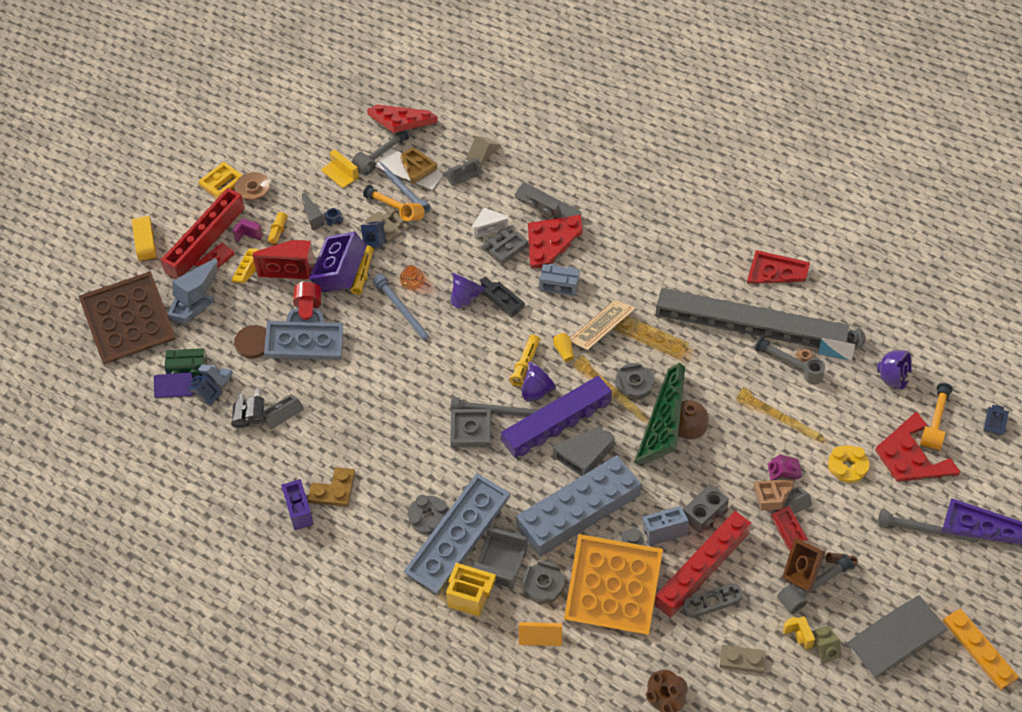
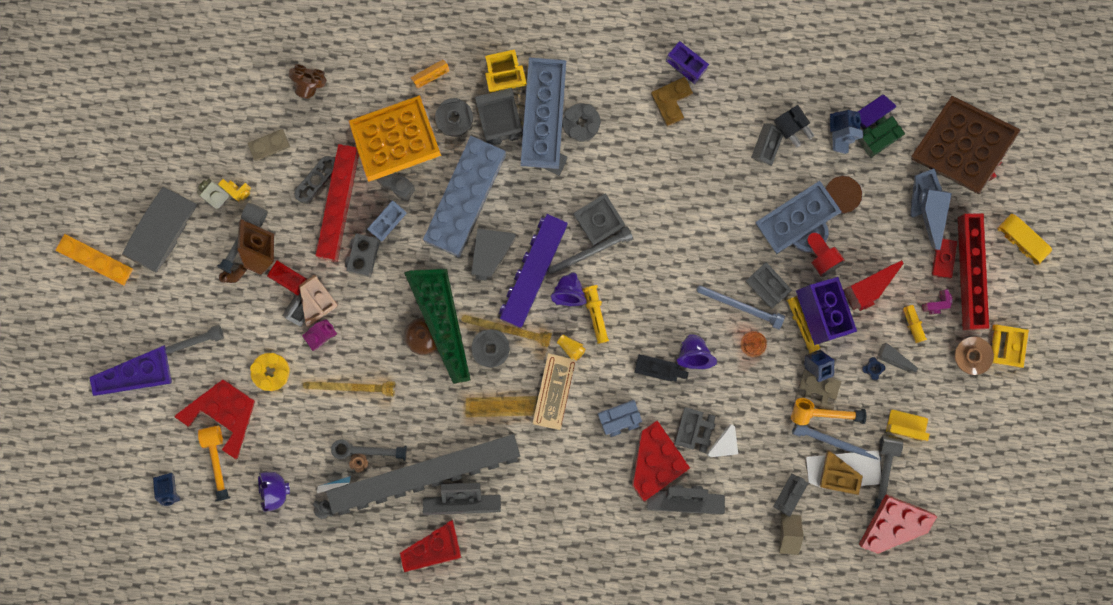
camera: 140 degrees right, 30 degrees up
(246, 268) = (909, 271): yellow slope -> none
(367, 308) = (768, 285): none -> dark grey plate
(731, 286) = (461, 499): none -> dark grey bracket

